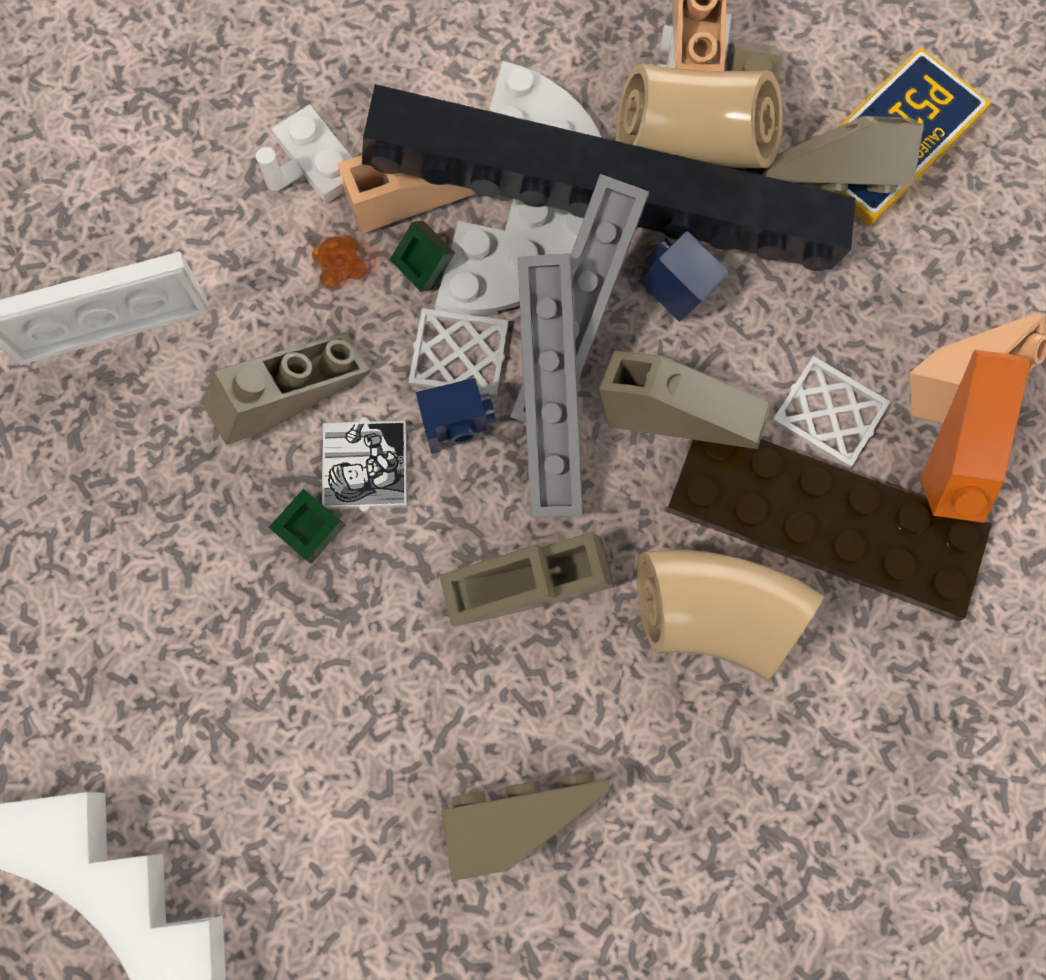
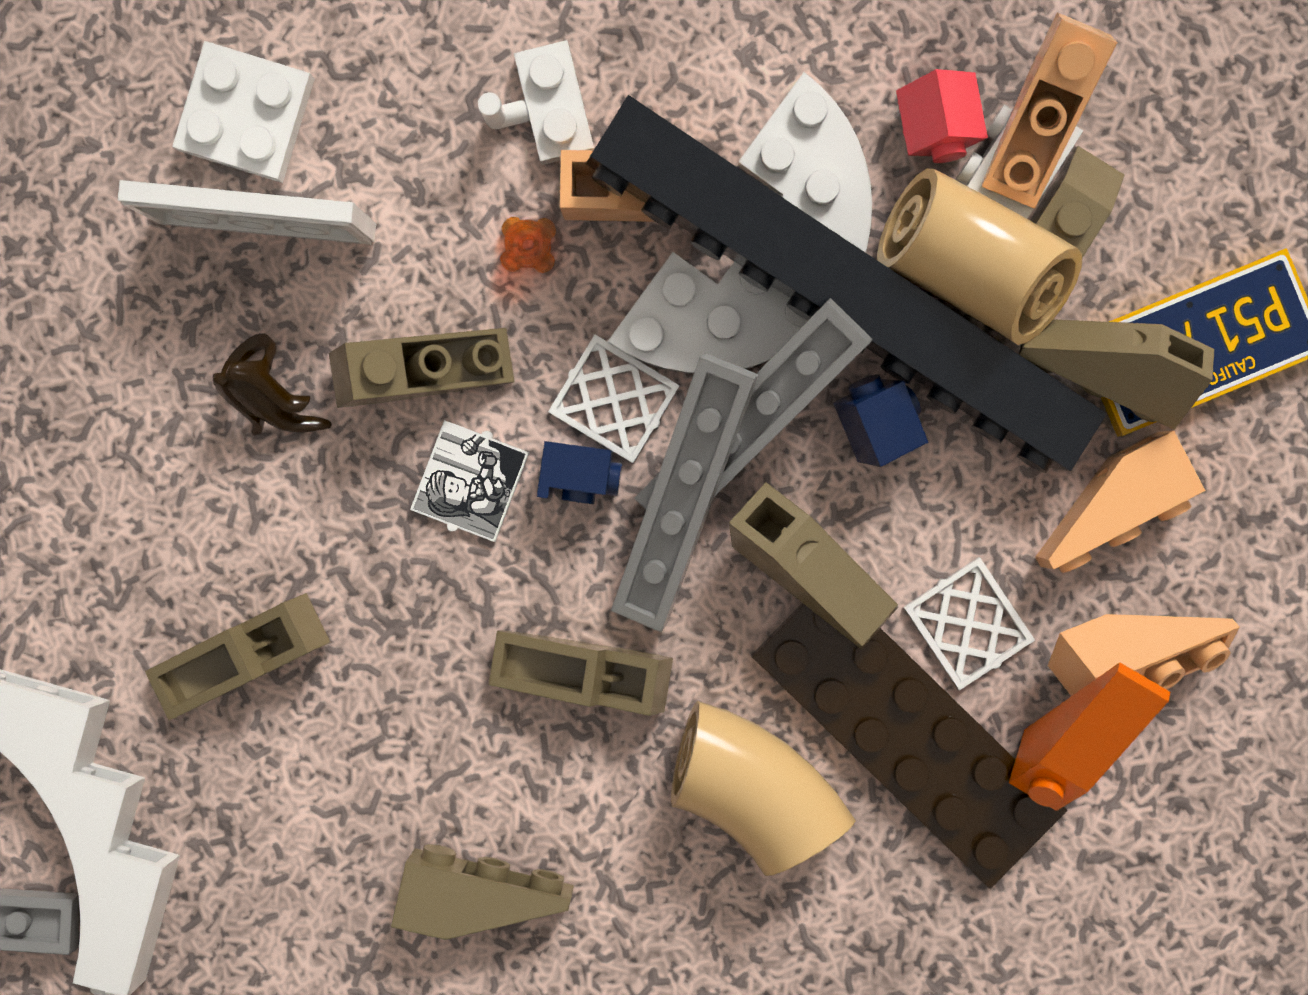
camera: 30 degrees right, 15 degrees up
(61, 244) = (243, 111): none -> white plate
(154, 457) = (258, 395): none -> dark brown piece
(211, 696) = (237, 656): none -> dark tan slope
(307, 526) = (386, 526): dark green plate -> none
(422, 256) = (616, 279): dark green plate -> none
(618, 43) = (942, 115): none -> coral brick
(897, 257) = (1124, 493): none -> light nougat slope

